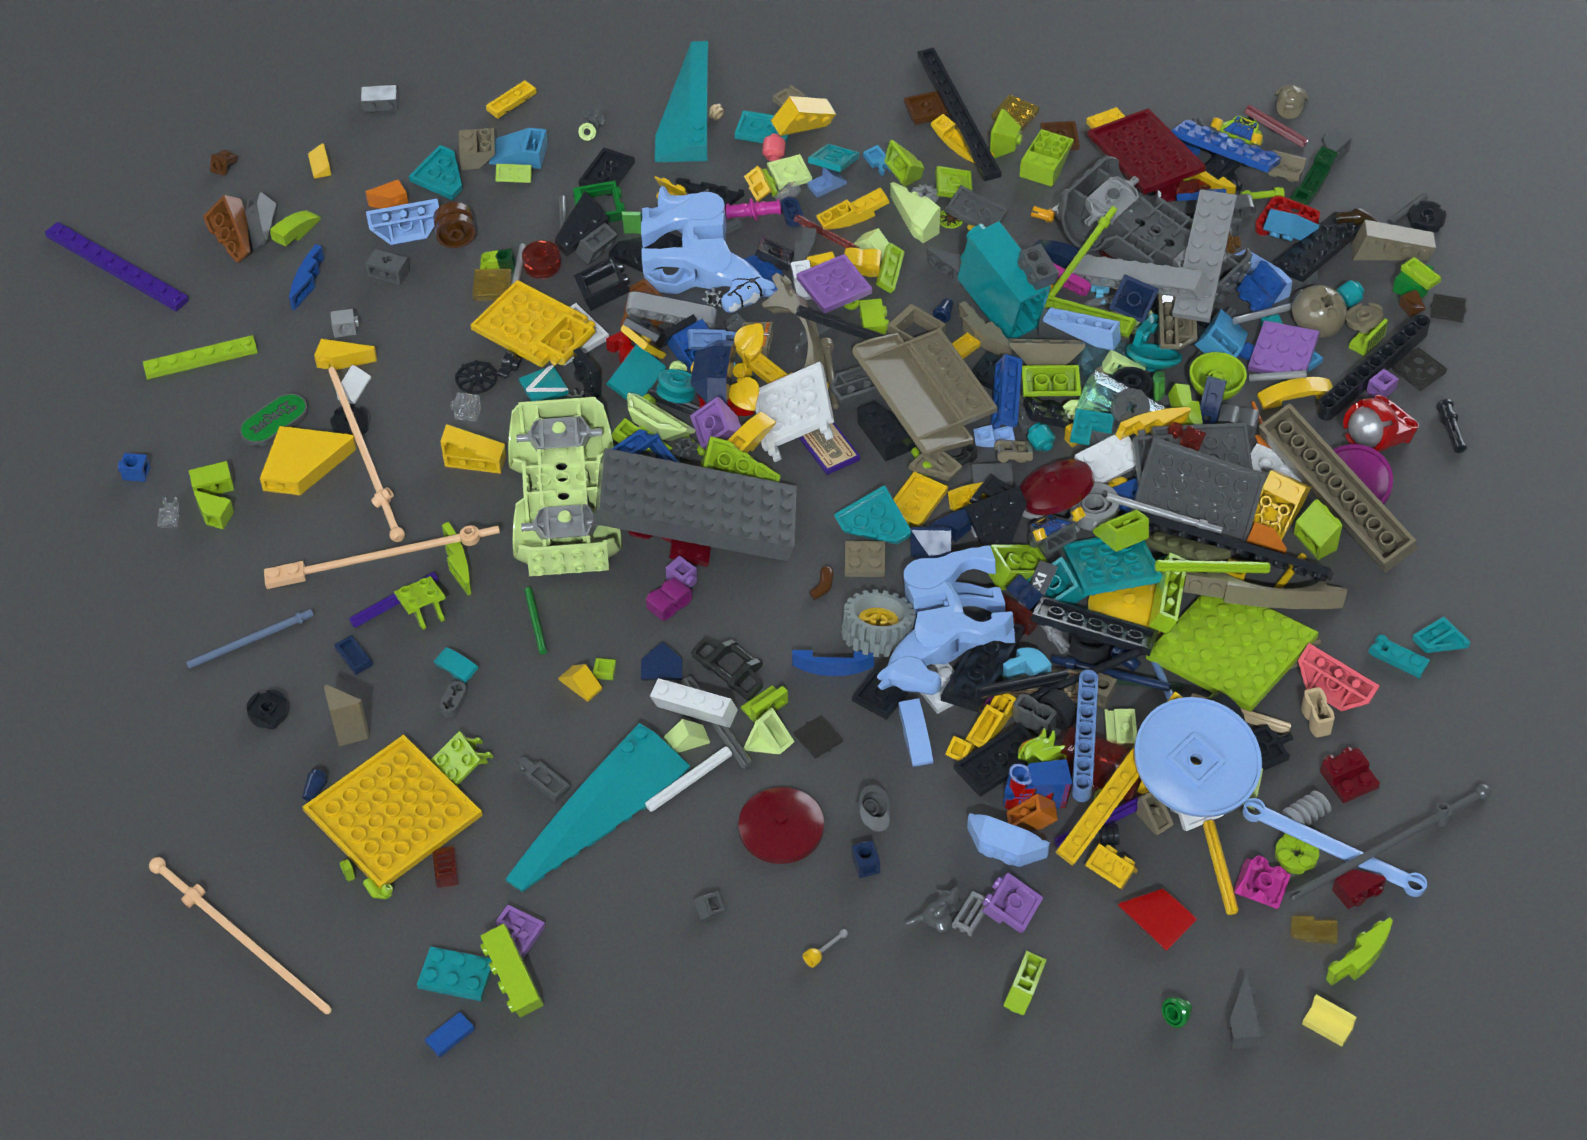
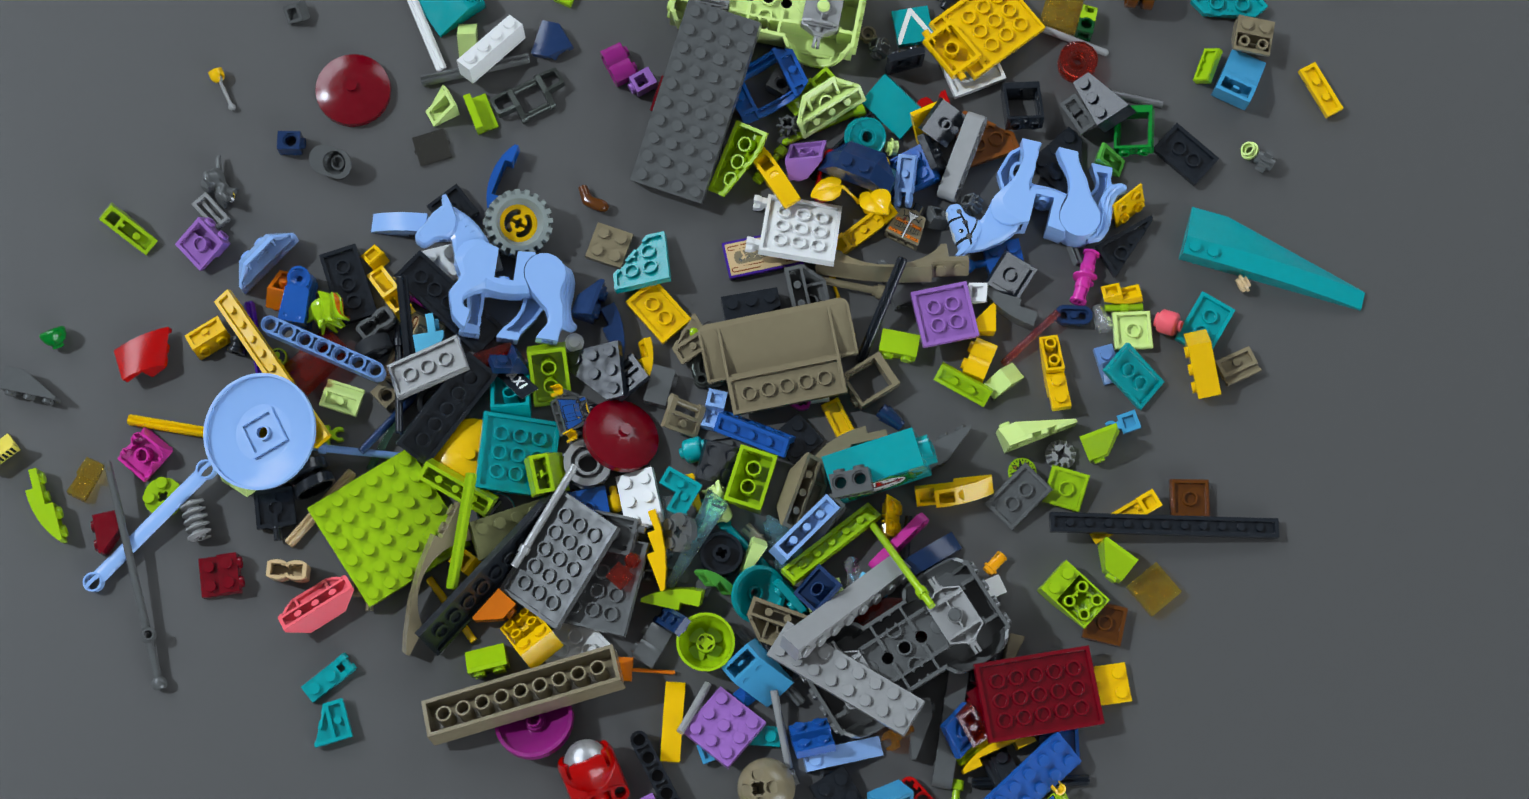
camera: 100 degrees right, 25 degrees up
(1062, 643) = (428, 367): none -> light grey tile

